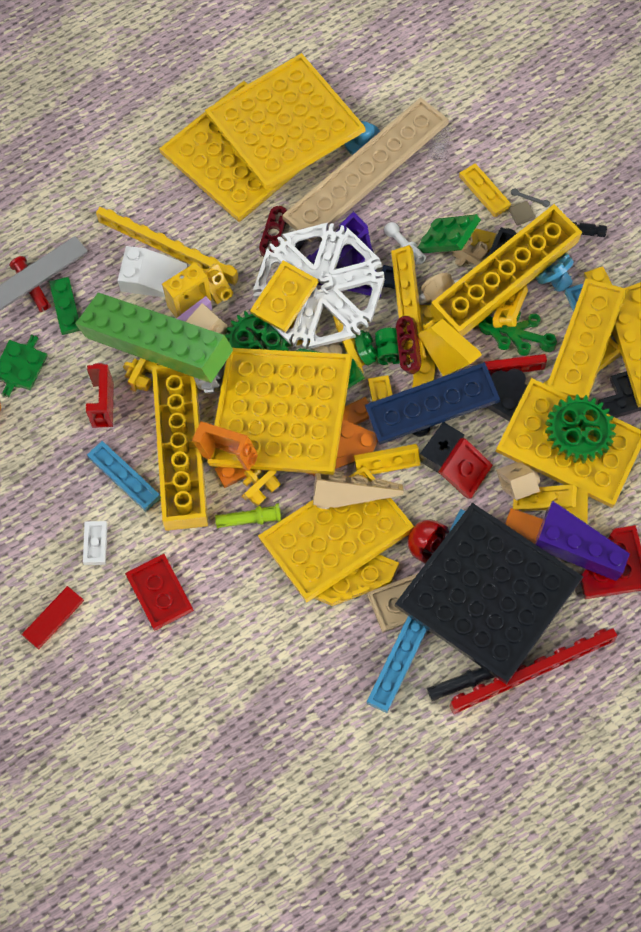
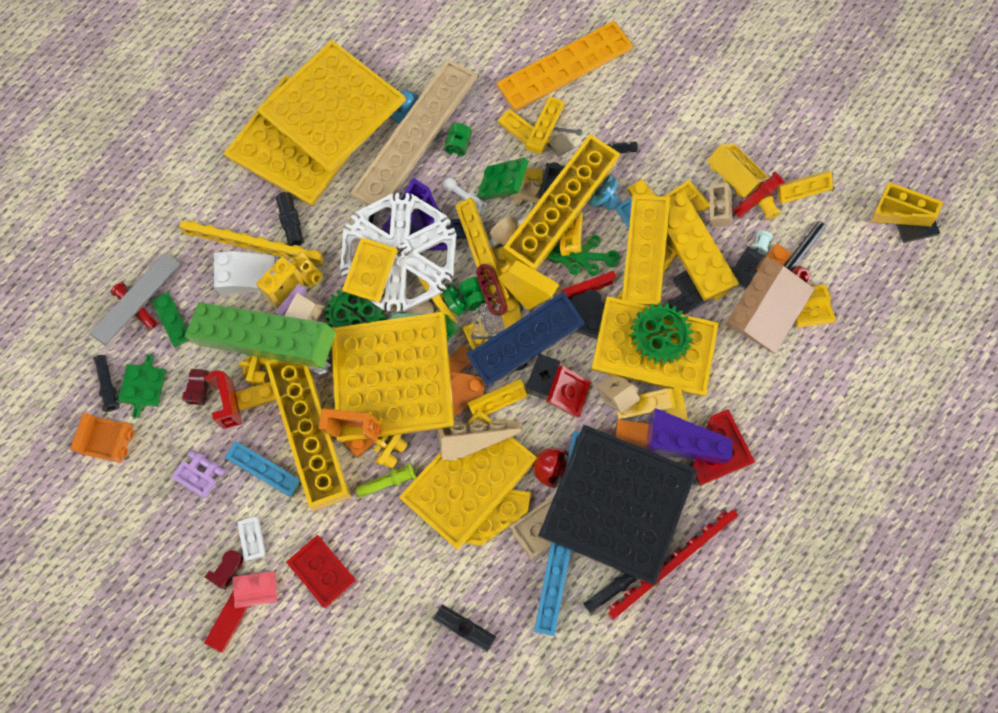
camera: 15 degrees left, 5 degrees up
(50, 470) = (194, 479): none -> lavender plate
(62, 567) = (226, 570): none -> dark red leg
(74, 379) = (196, 387): none -> dark red leg
(86, 593) = (254, 589): none -> coral plate
(133, 401) = (255, 396): none -> yellow plate
(212, 229) = (289, 219): none -> black piece
(272, 224) = (341, 202): dark red beam -> none
(284, 673) = (453, 620): none -> black piece
(395, 379) = (487, 324): none -> clear wing
(411, 183) = (457, 139): none -> green wheel
(509, 188) = (544, 125): none -> yellow tile
(547, 130) = (564, 66): none -> light orange plate

